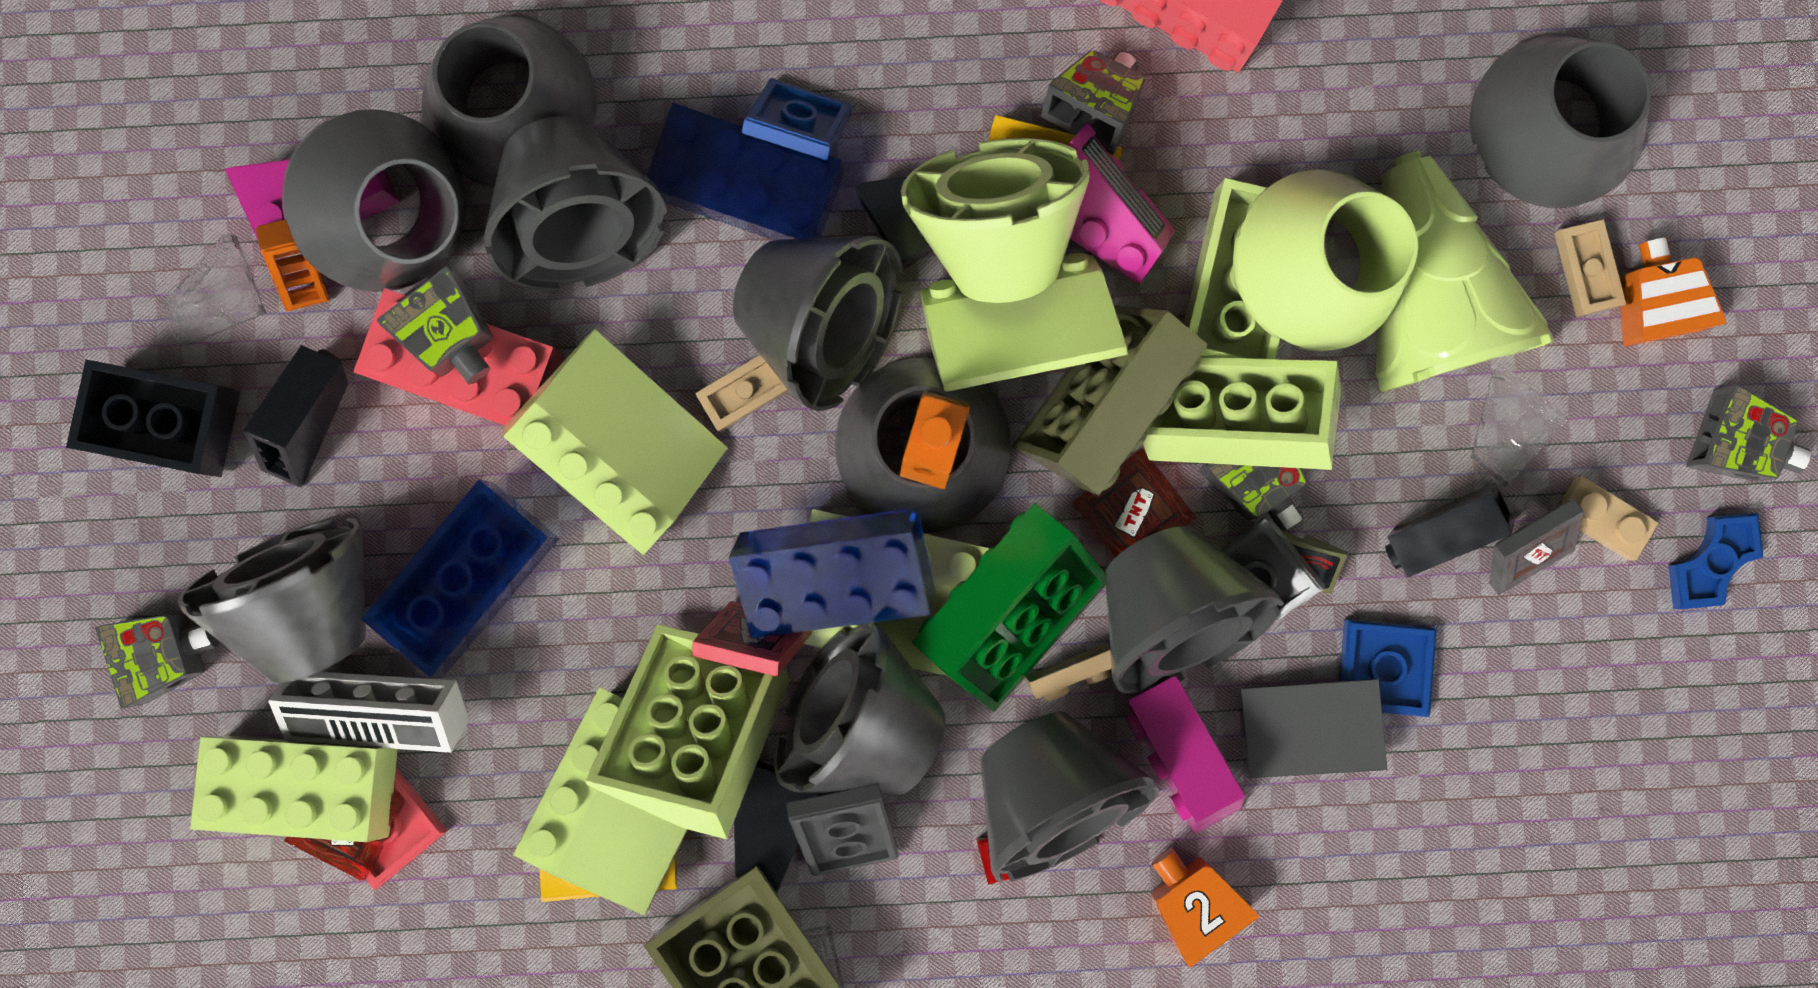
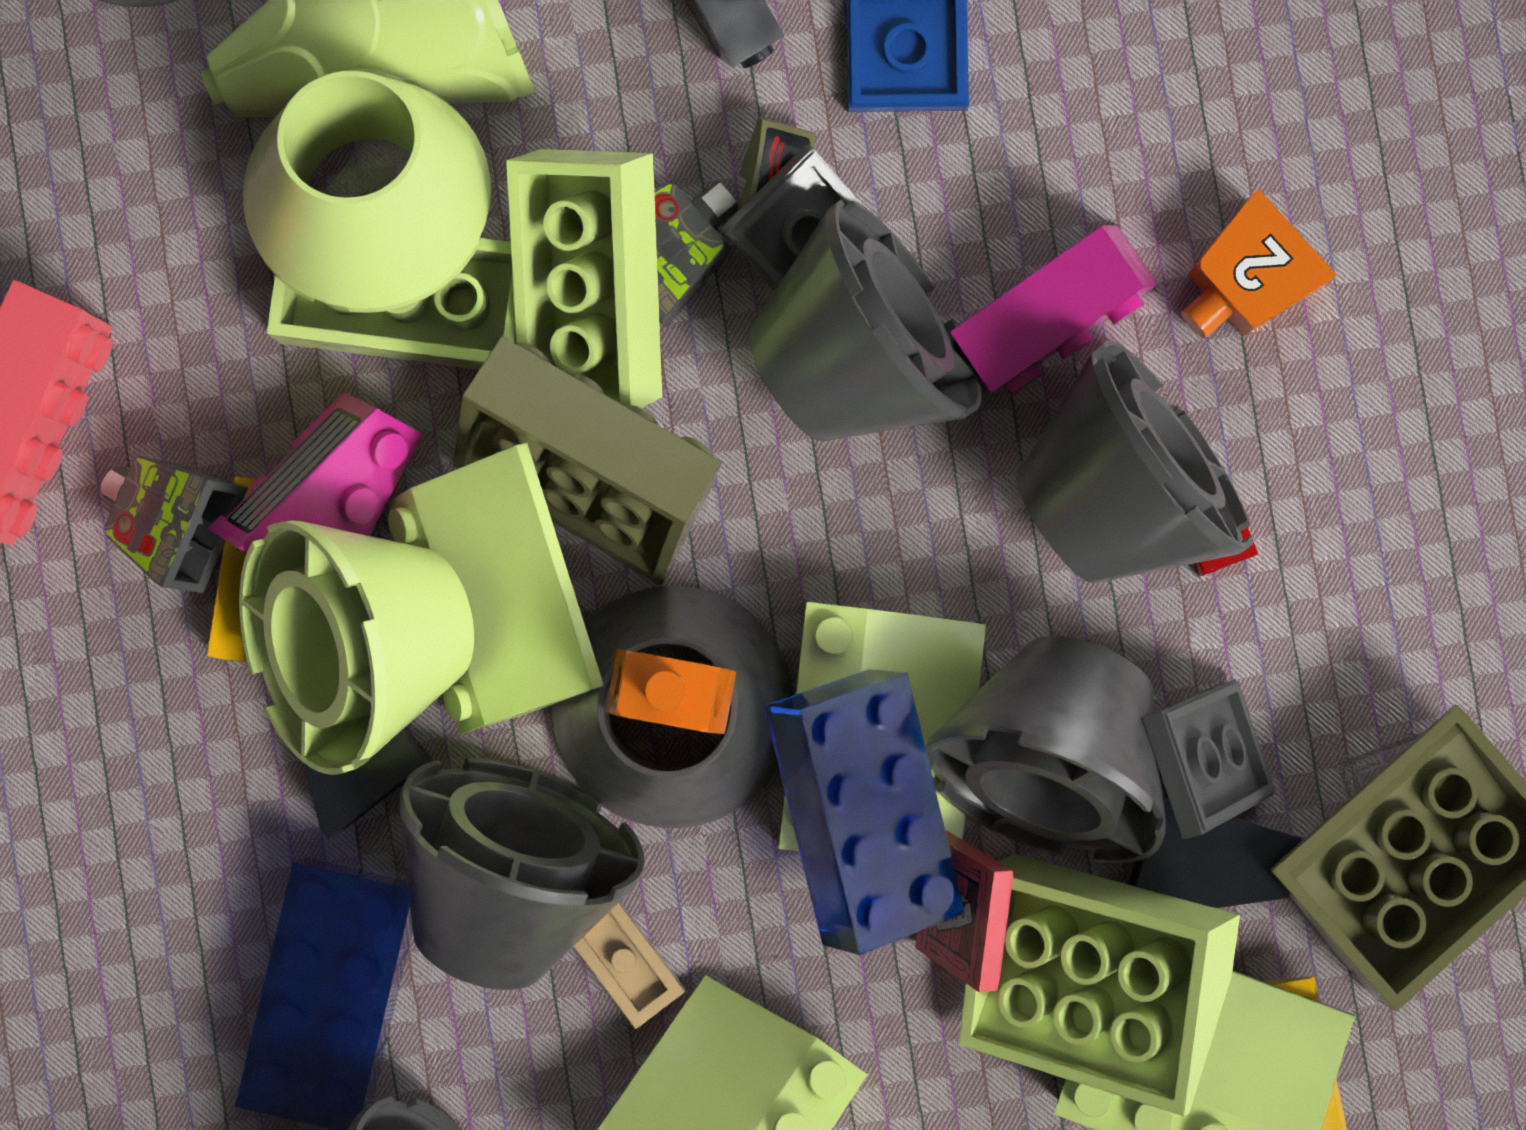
camera: 95 degrees left, 0 degrees up
(797, 119) = (239, 929): blue tile -> none
(1011, 607) = (884, 563): green slope -> none
(1054, 680) = (972, 492): tan plate -> none
(1134, 506) = (726, 408): tile -> none
(1314, 728) = (999, 140): dark grey tile -> none

